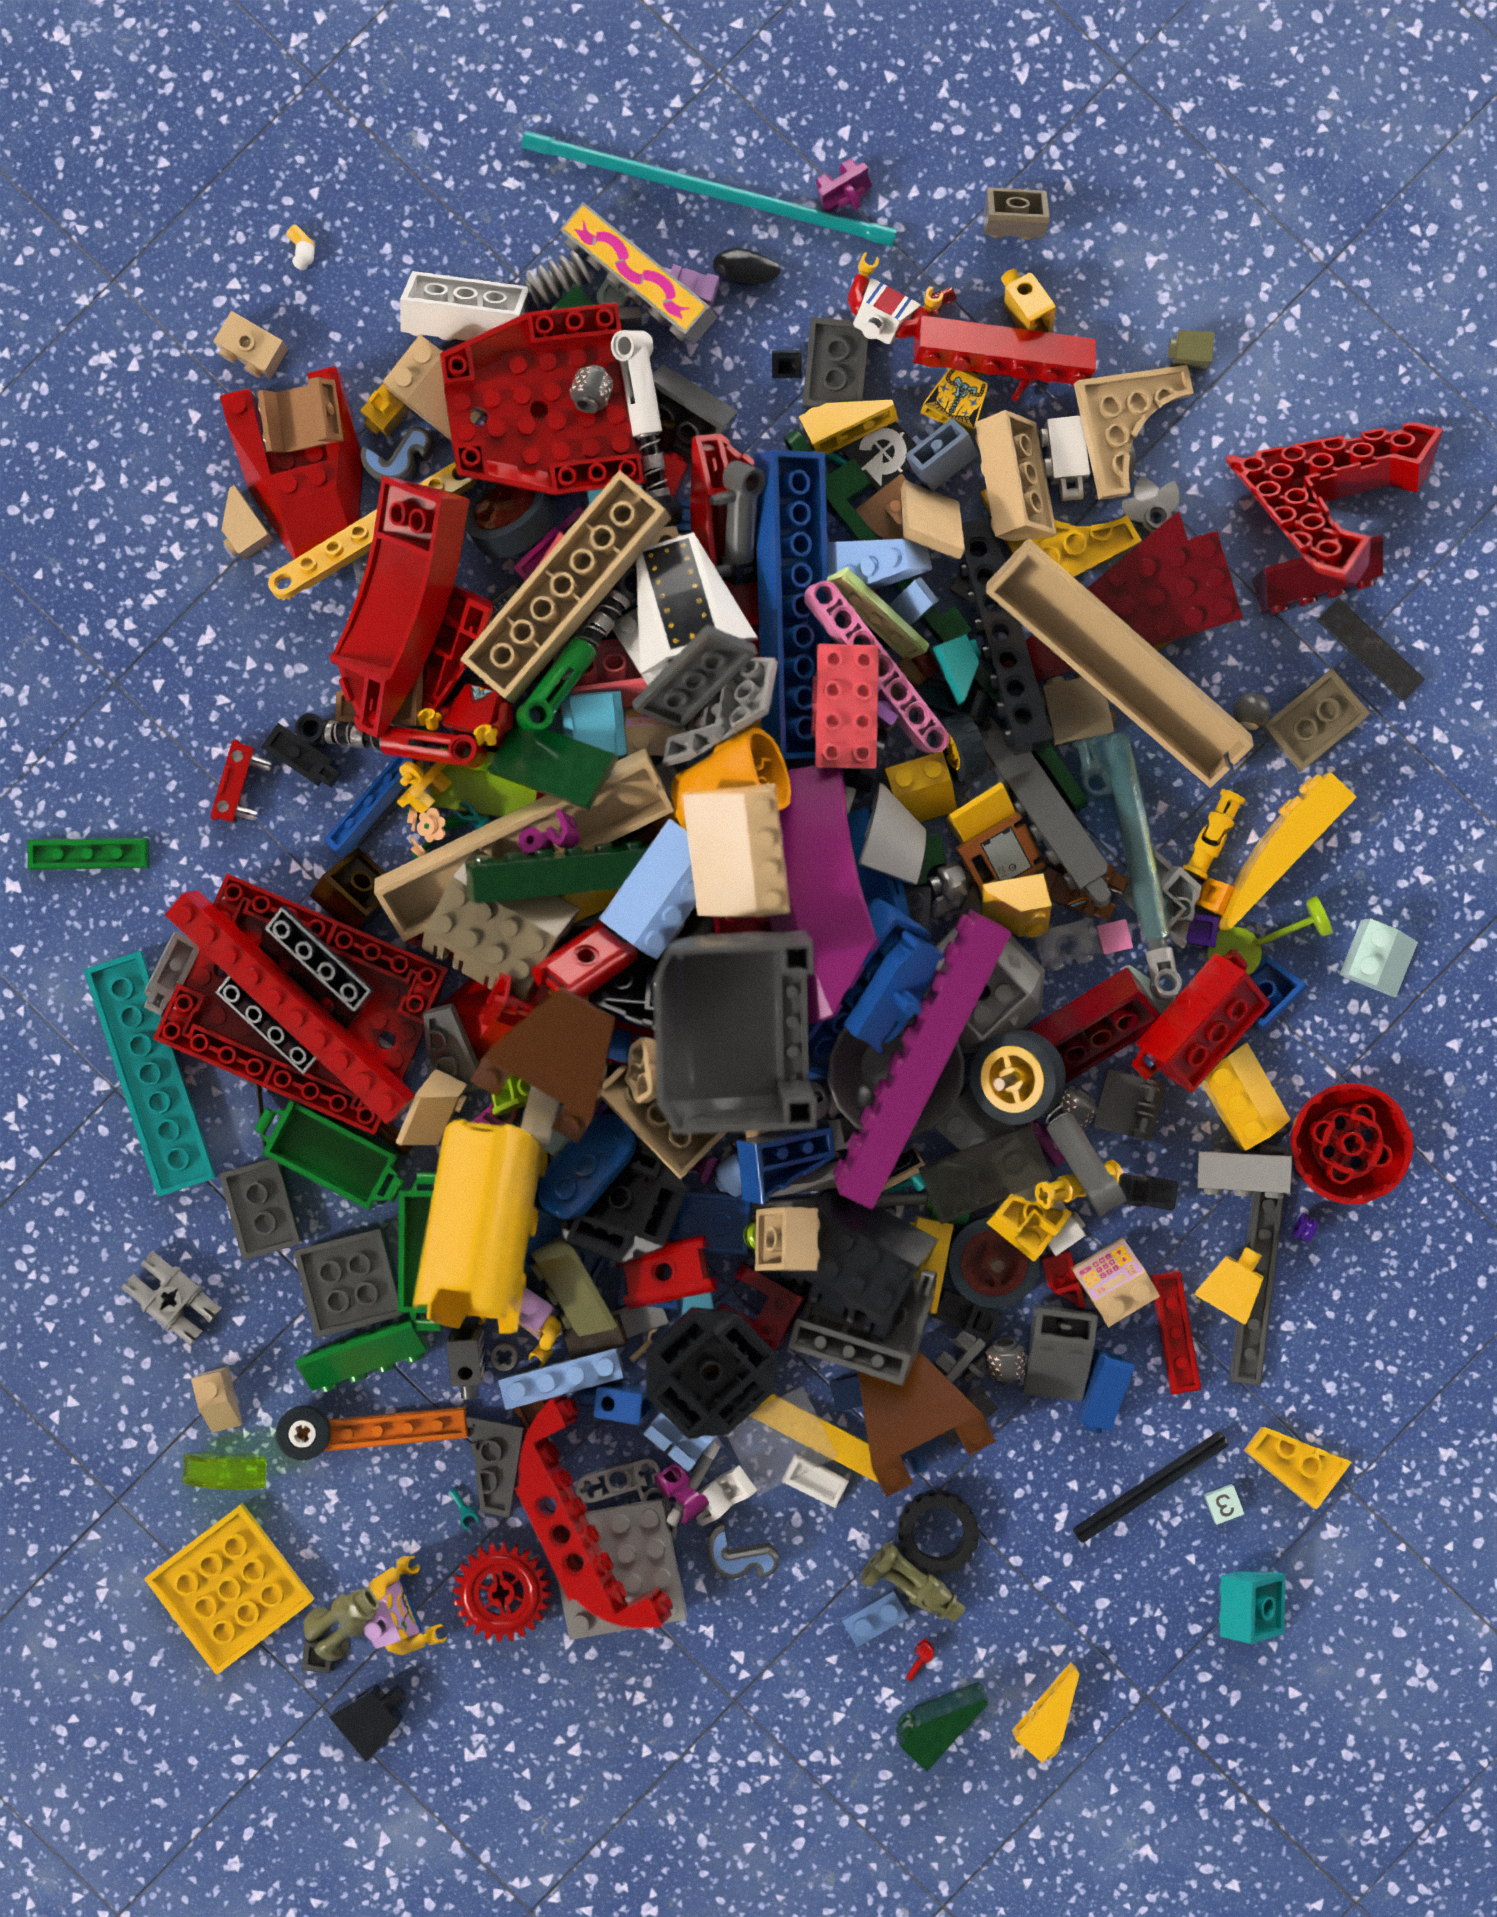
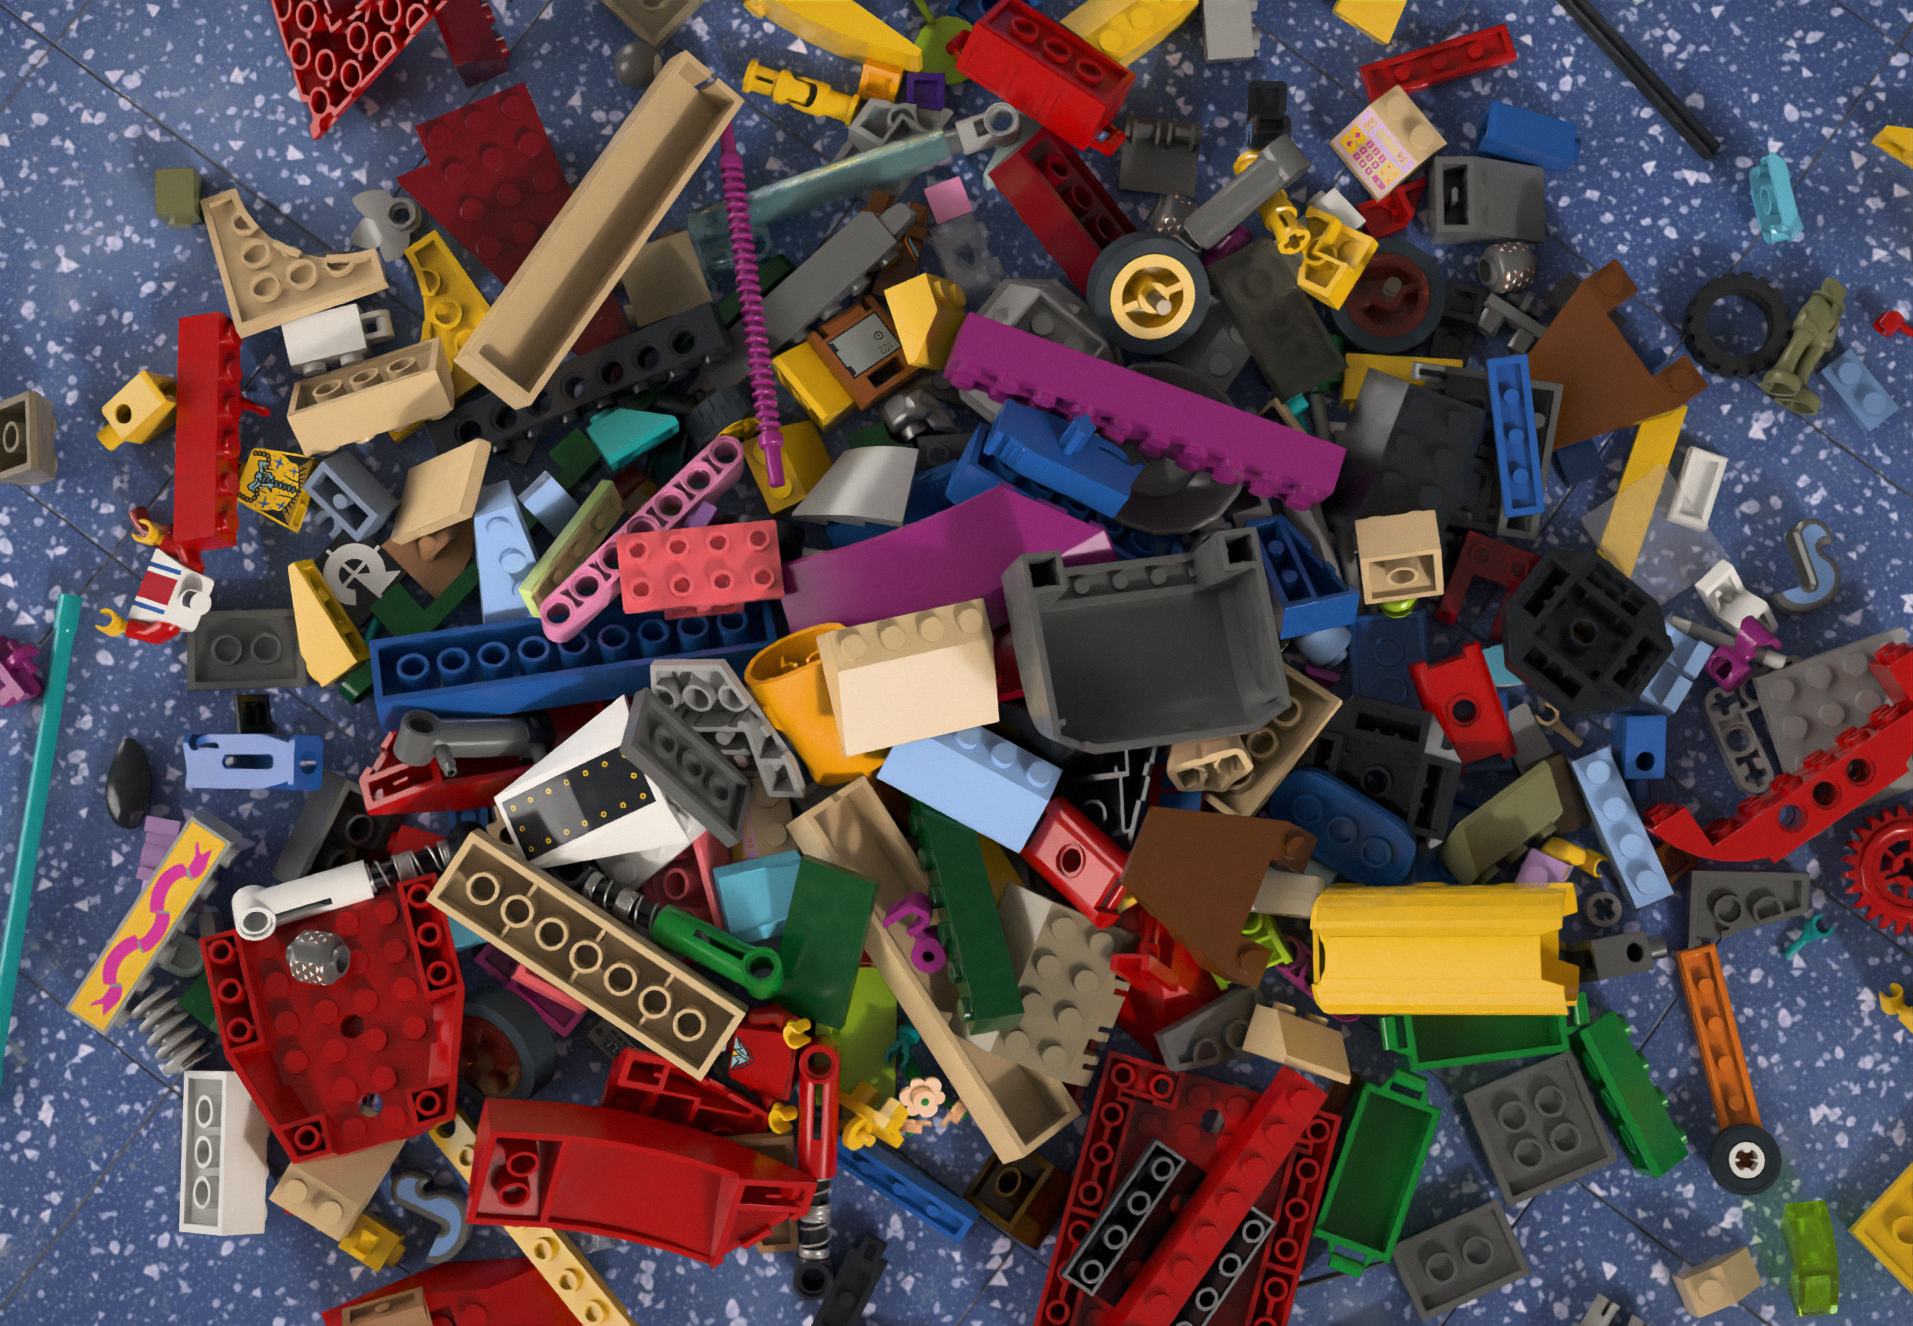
camera: 100 degrees left, 5 degrees down
(746, 359) = (254, 761): none -> piece
(867, 1342) = (1515, 435): none -> blue plate
(939, 772) = (770, 439): none -> magenta hose
(1031, 1577) = (1774, 200): none -> medium azure slope

